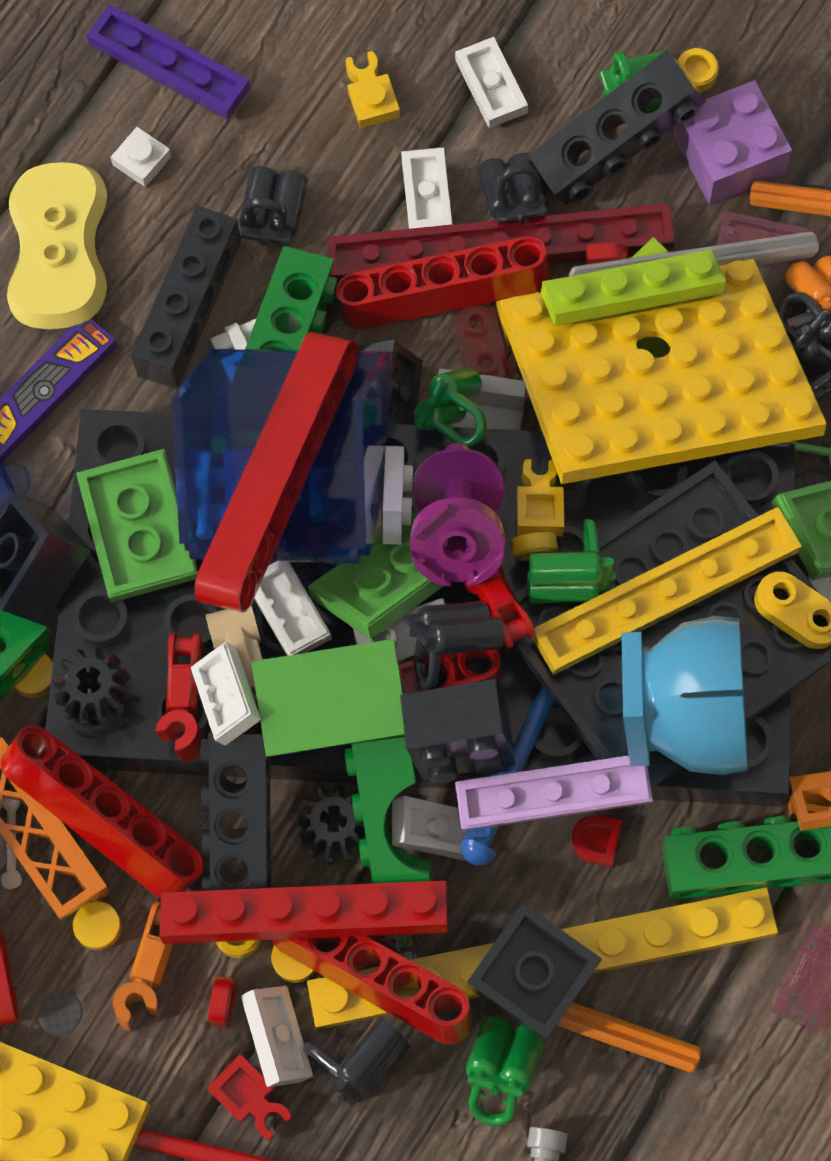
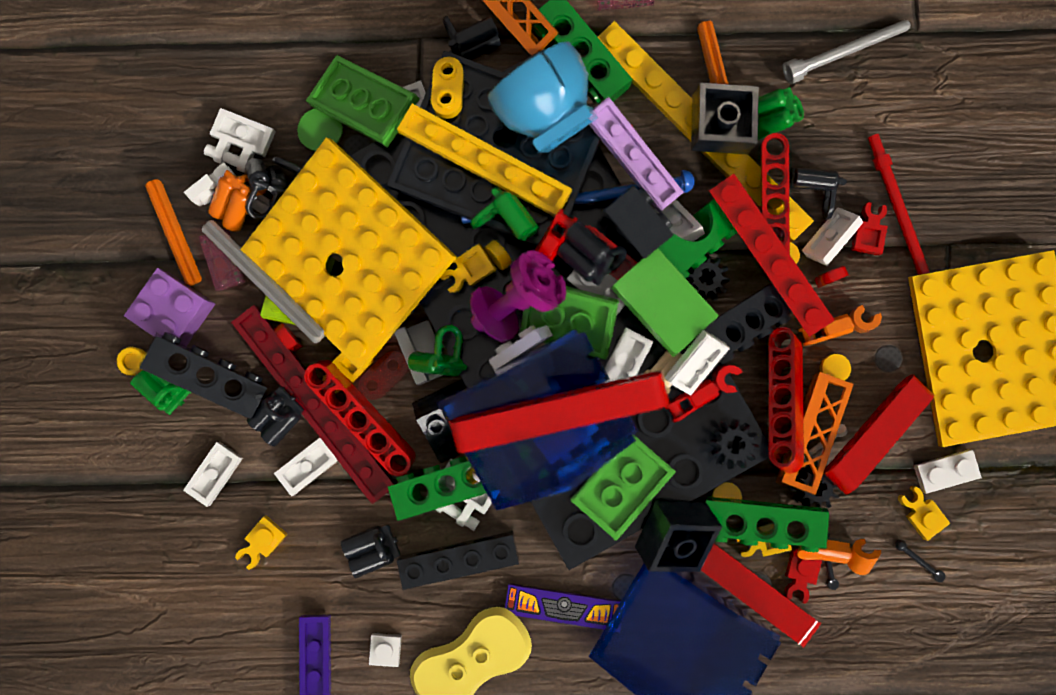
camera: 125 degrees left, 15 degrees up
(633, 287) = (305, 297): lime plate -> none

